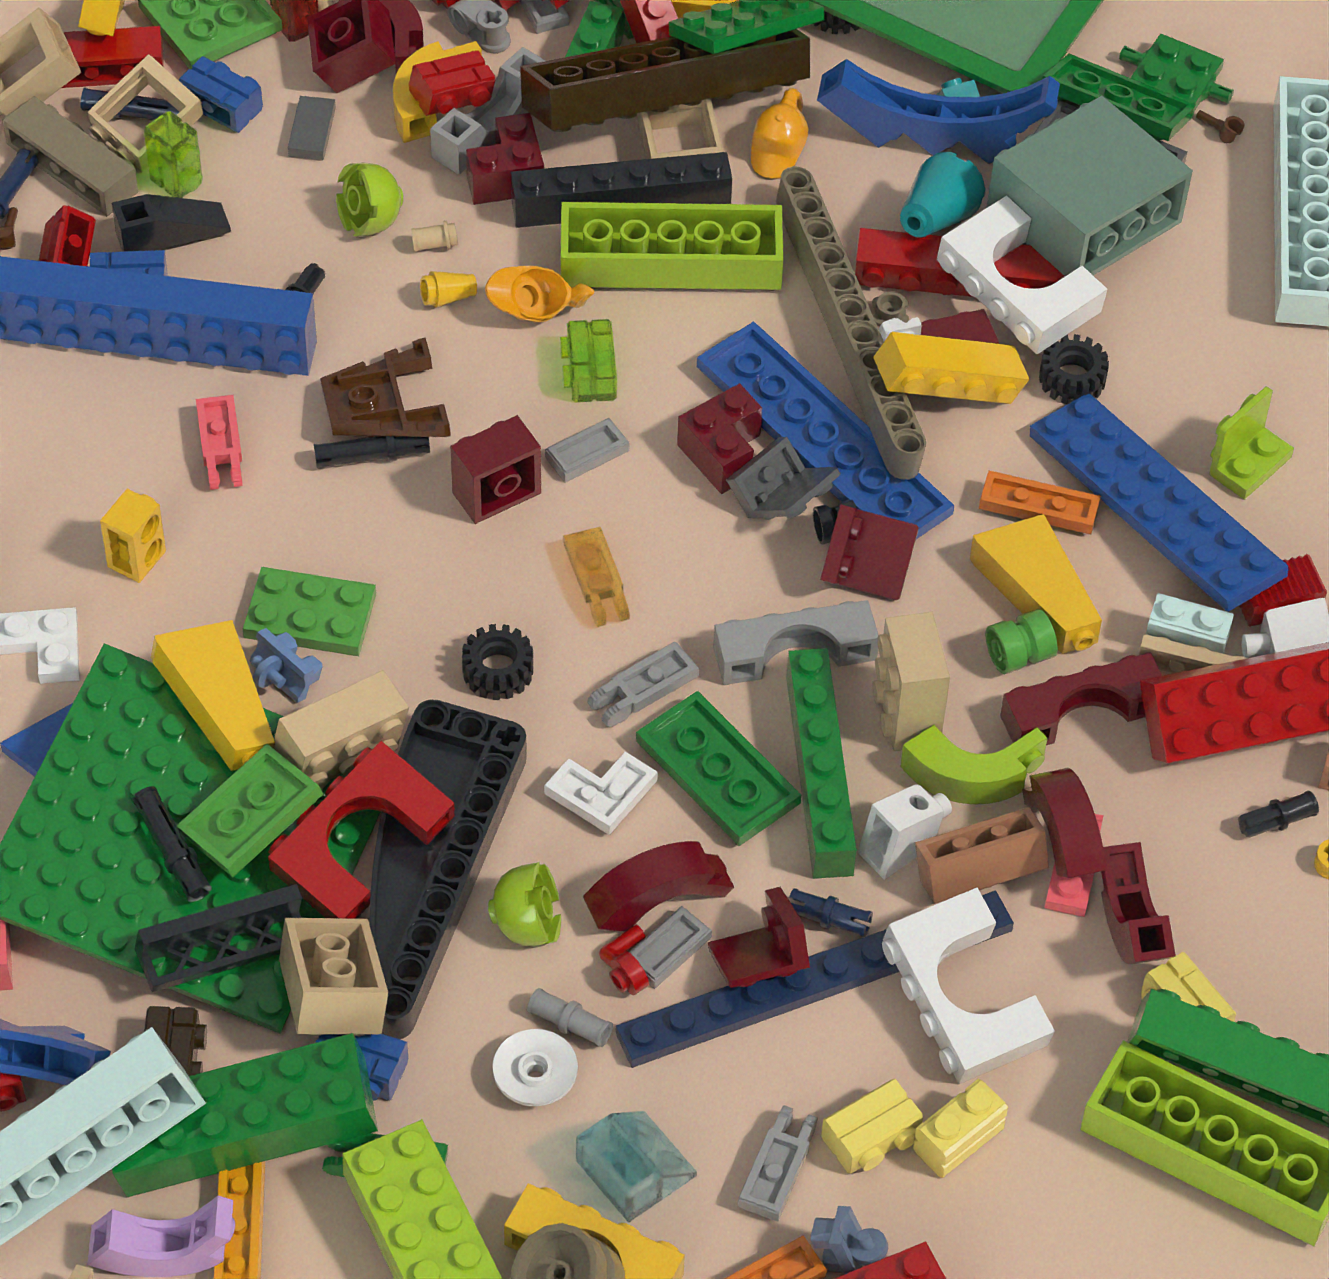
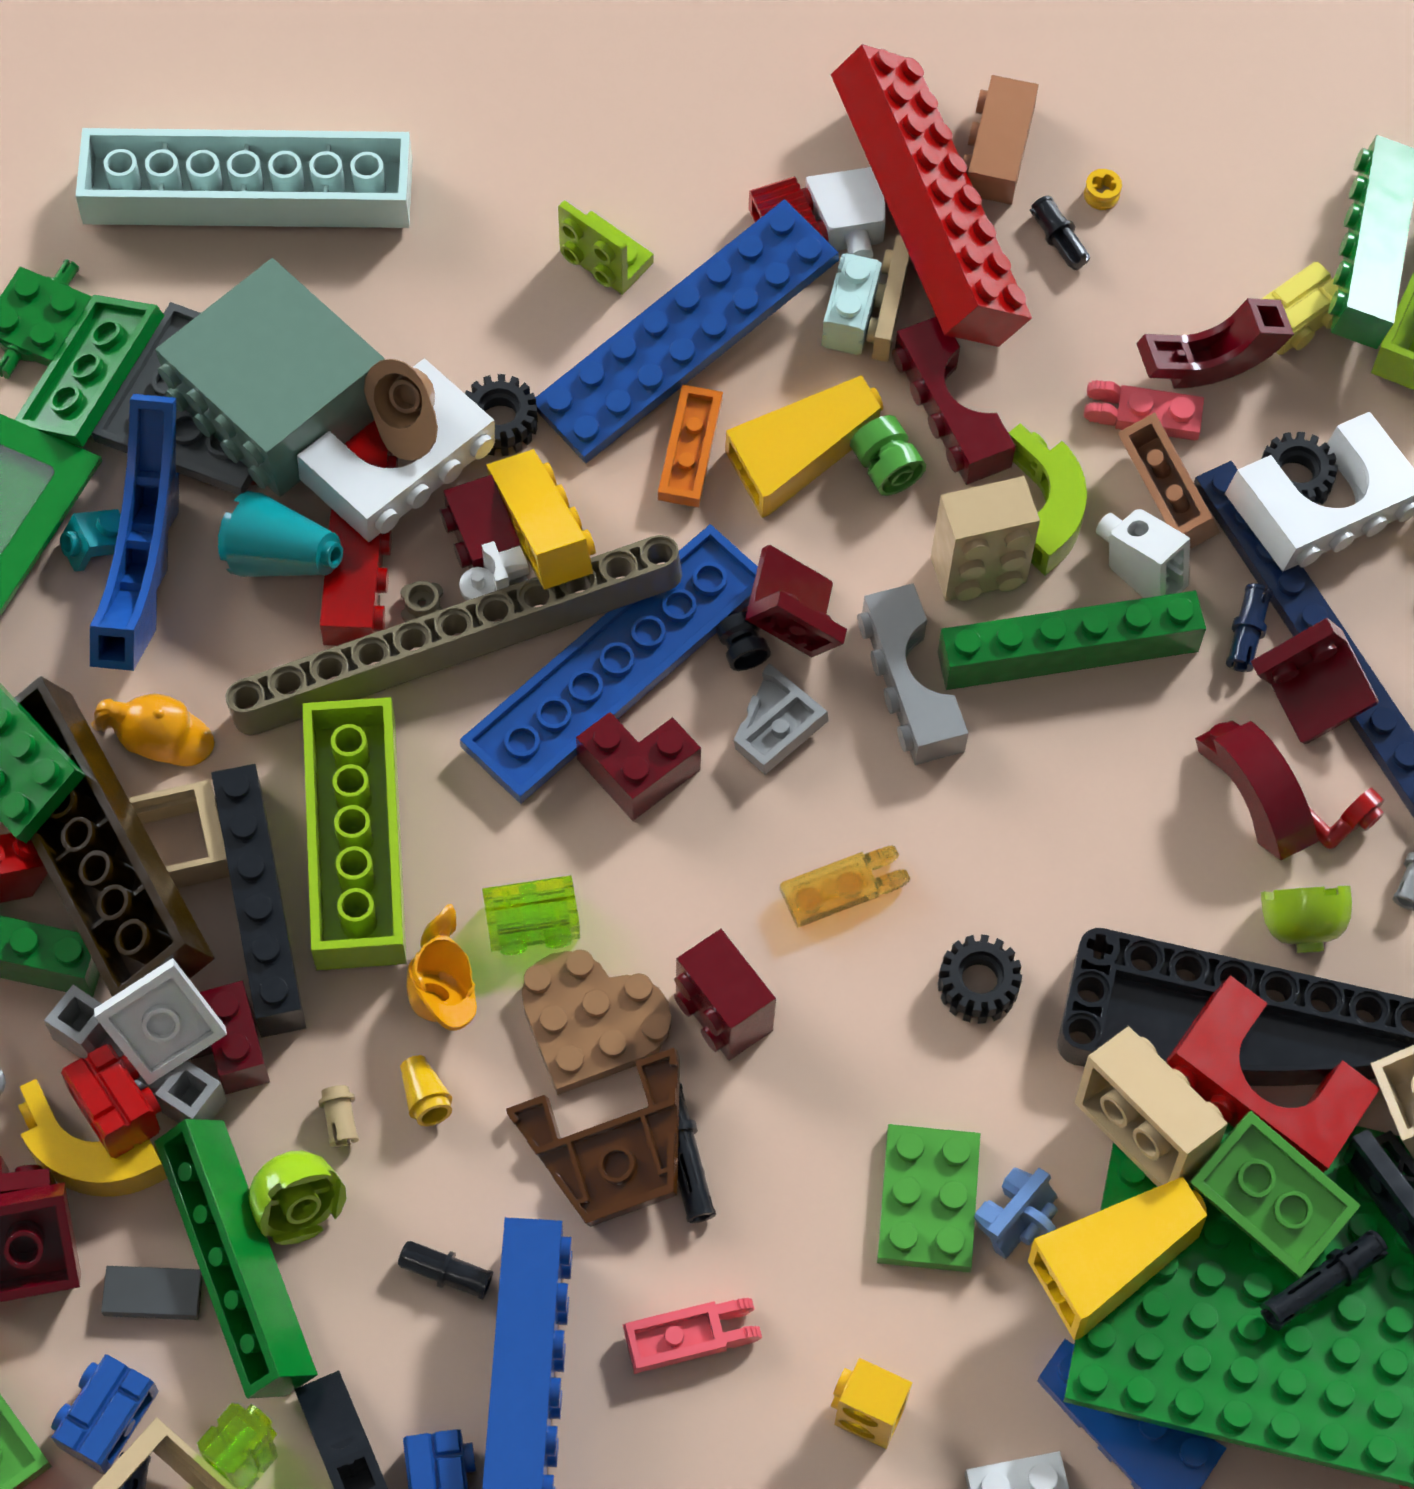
camera: 95 degrees left, 10 degrees up
(318, 162) = (235, 1259): none -> green brick
(497, 390) = (591, 1021): none -> medium nougat plate
(502, 96) = (160, 1021): none -> white plate
(587, 450) = (656, 914): light grey tile -> none
(603, 799) = (1145, 852): white plate -> none
(644, 683) = (986, 823): light grey hinge -> none
(671, 945) = (1323, 786): light grey tile -> none
(718, 768) = (1086, 743): green plate -> none
(757, 541) = (777, 721): none -> light grey wing
(778, 482) = (708, 687): dark grey bracket -> none
(1002, 956) = (1312, 457): none -> black tyre
(1050, 260) = (402, 408): none -> medium nougat piece
(1069, 821) = (1122, 396): dark red arch -> none
(1228, 129) = (120, 271): reddish brown hand -> none

